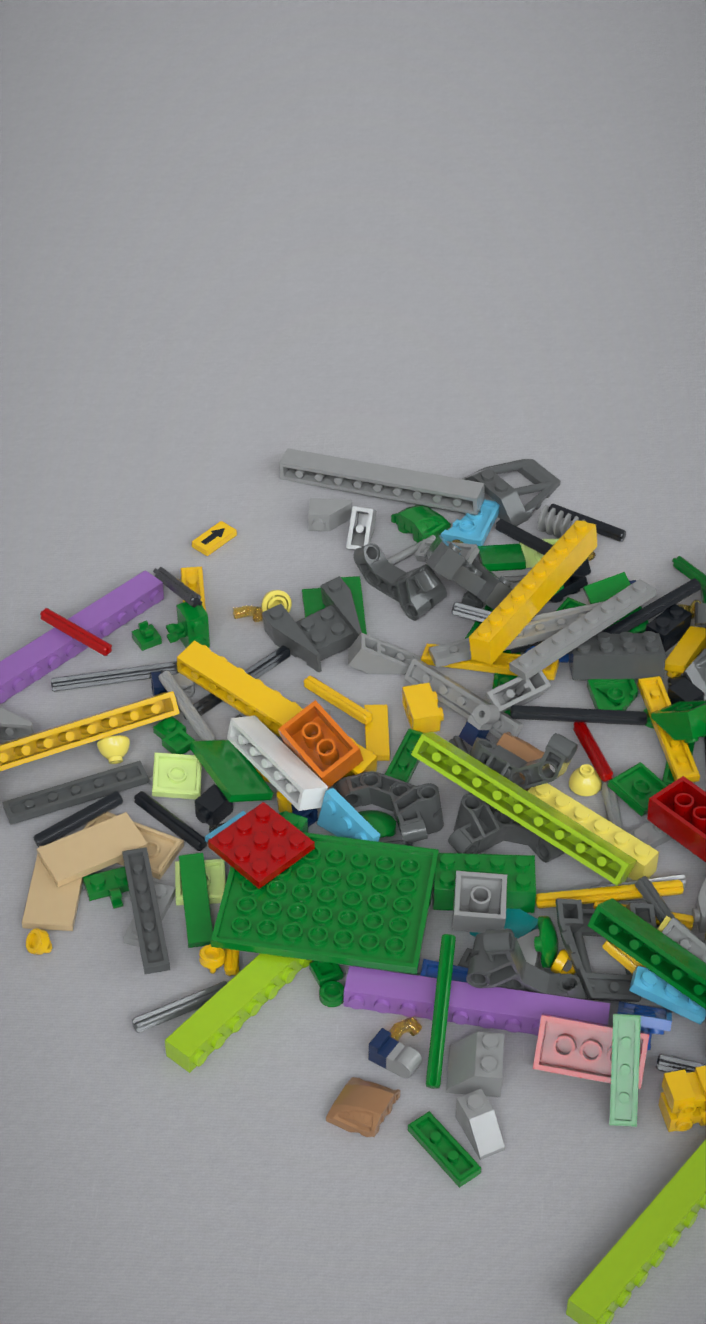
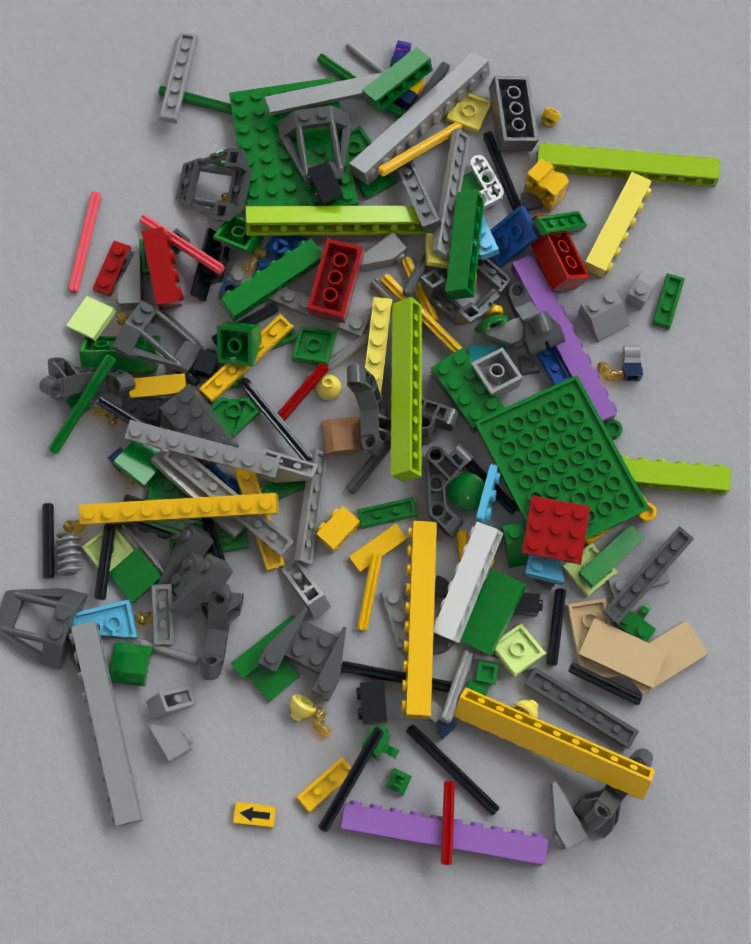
camera: 125 degrees left, 30 degrees up
(38, 942) = (714, 630): yellow tile -> none
(175, 1008) = (689, 508): dark grey axle -> none
(234, 647) = (373, 702): none -> black brick
(321, 743) = (442, 552): orange brick -> none
(362, 1107) = (677, 356): medium nougat slope -> none
(440, 1012) = (590, 348): green axle -> none
(480, 723) = (334, 475): light grey leg -> none
(586, 1153) = (617, 224): none -> light yellow brick

